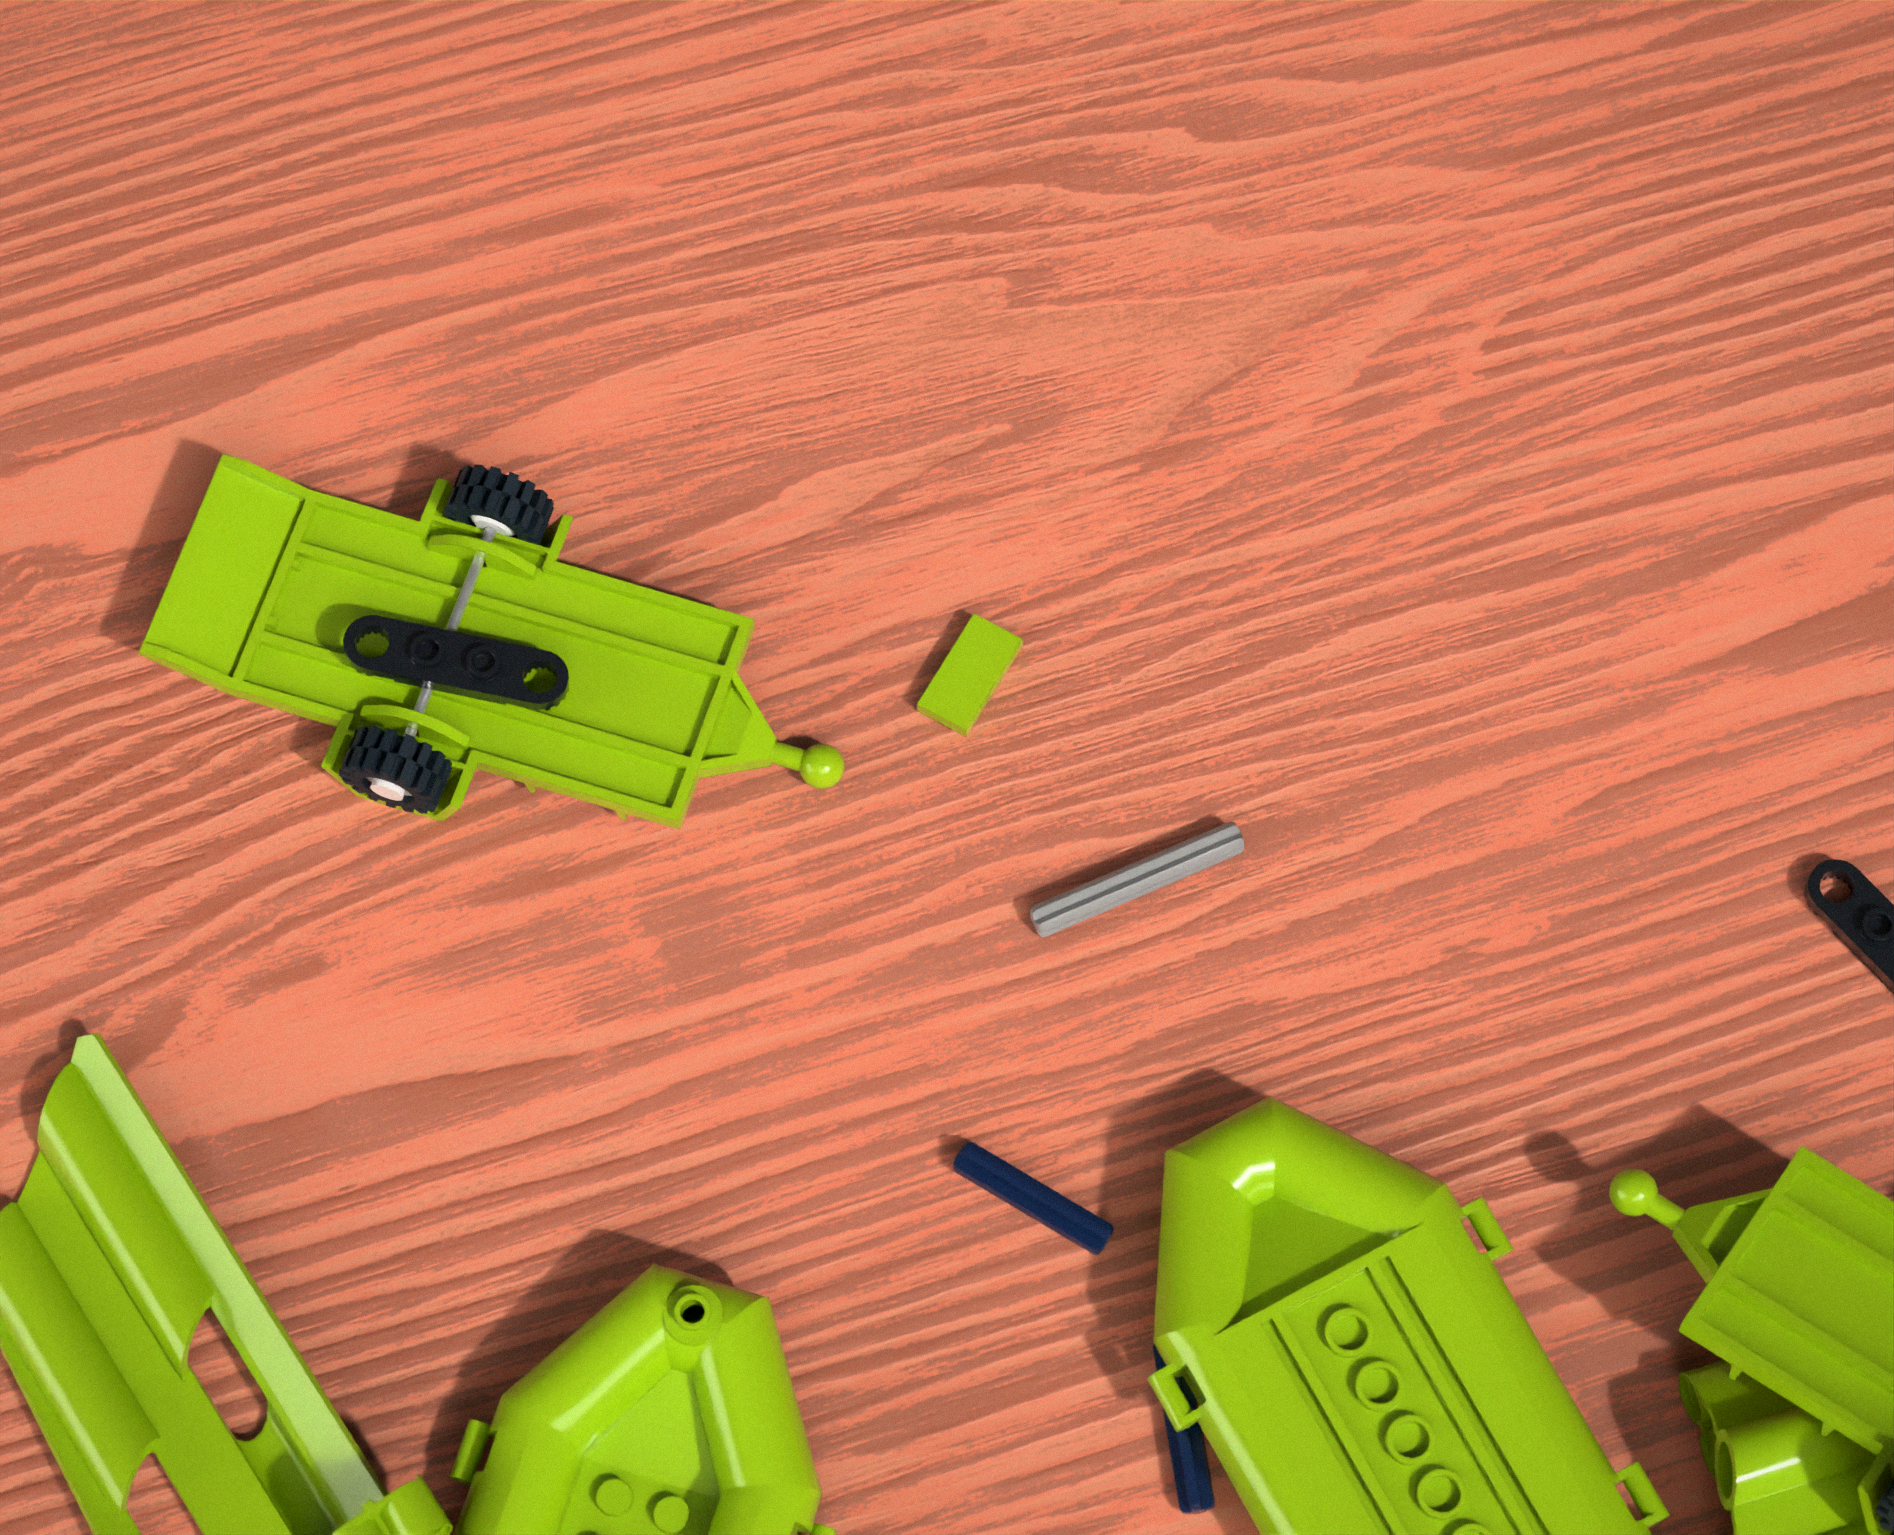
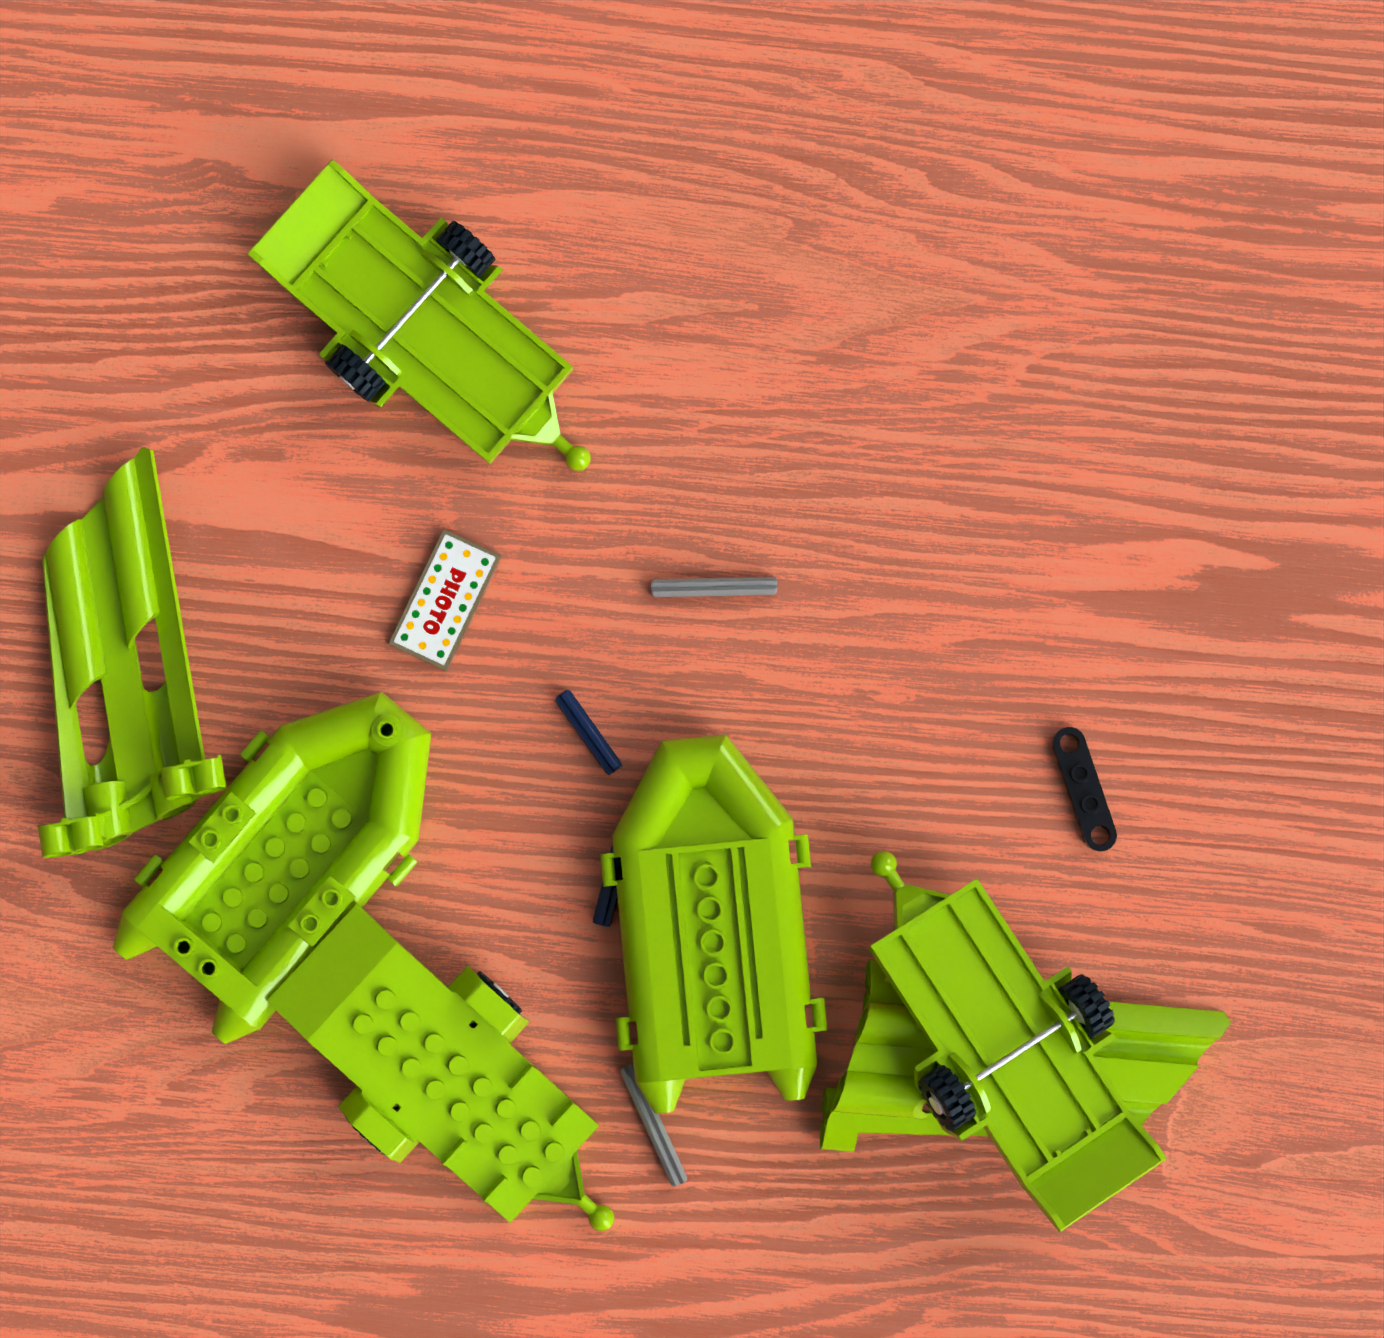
camera: 20 degrees right, 15 degrees up
(456, 662) = (408, 328): black plate -> none
(696, 1083) = (445, 600): none -> tile
(969, 675) = (676, 439): lime tile -> none

